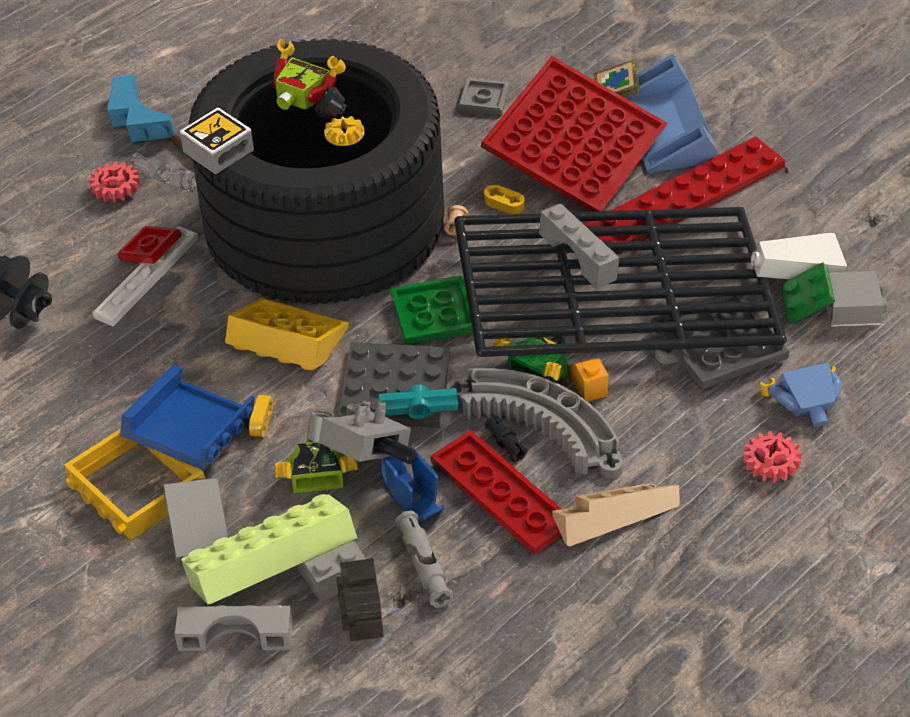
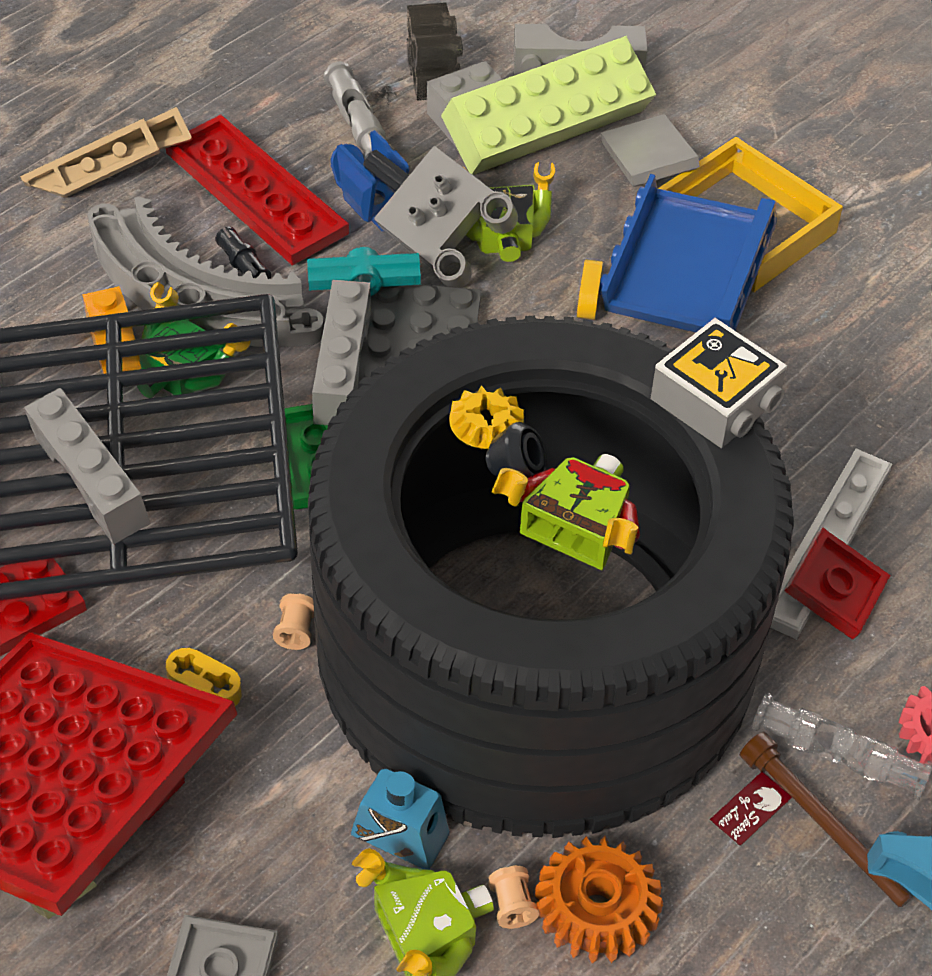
camera: 175 degrees right, 5 degrees up
(430, 341) = (340, 347): none -> light grey arch

